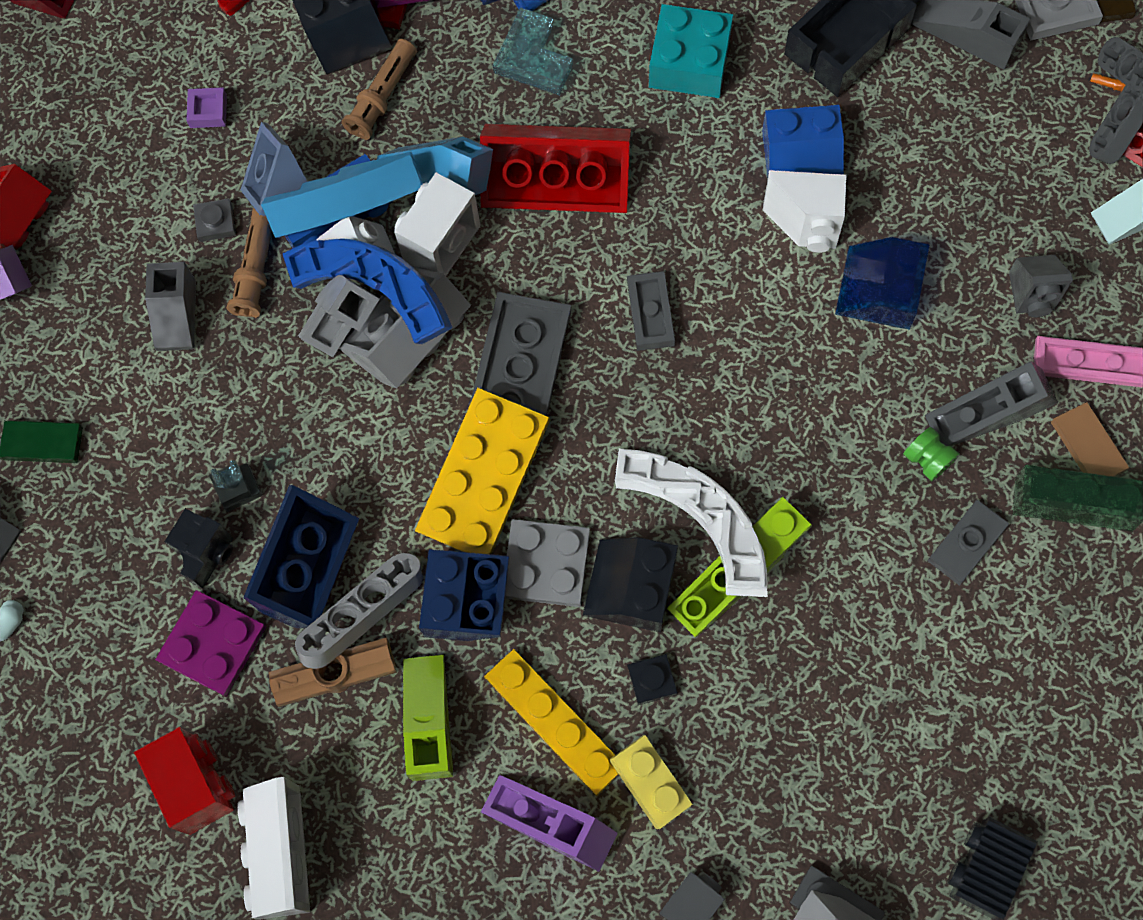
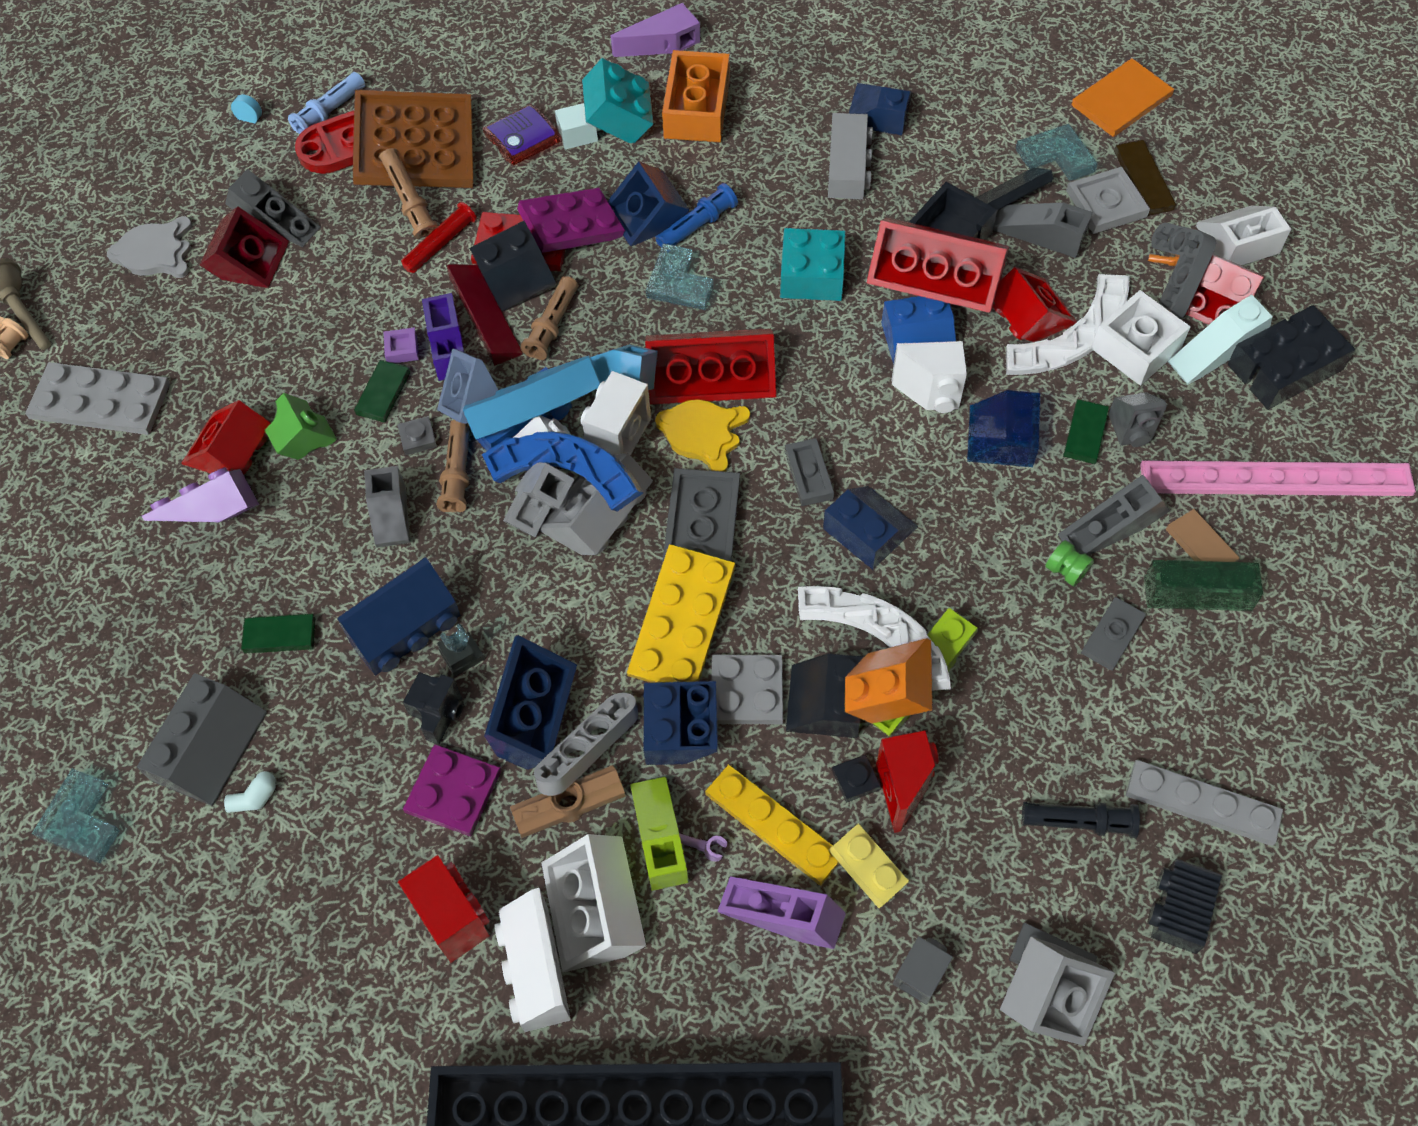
camera: 10 degrees left, 10 degrees down
(81, 200) = (298, 428): none -> bright green brick
(170, 442) = (400, 617): none -> dark blue slope
(181, 161) = (382, 391): none -> dark green tile
(255, 94) = (442, 330): none -> dark purple slope
(306, 76) = (484, 312): none -> dark red slope
(347, 788) = (593, 902): none -> white slope
(473, 735) = (704, 846): none -> lavender hand
(536, 247) = (703, 431): none -> yellow tile
(701, 582) = (891, 683): none -> orange slope
(705, 686) = (905, 771): none -> red slope
(708, 381) = (867, 525): none -> dark blue slope
(832, 72) = (937, 264): none -> red slope
(911, 757) = (1100, 818): none -> black pin
(939, 128) = (1031, 306): none -> red slope
(978, 292) = (1086, 431): none -> dark green tile
(992, 173) = (1075, 341): none -> white tile
(1036, 752) = (1204, 802): none -> light grey plate
(1061, 183) = (1140, 337): none -> white brick

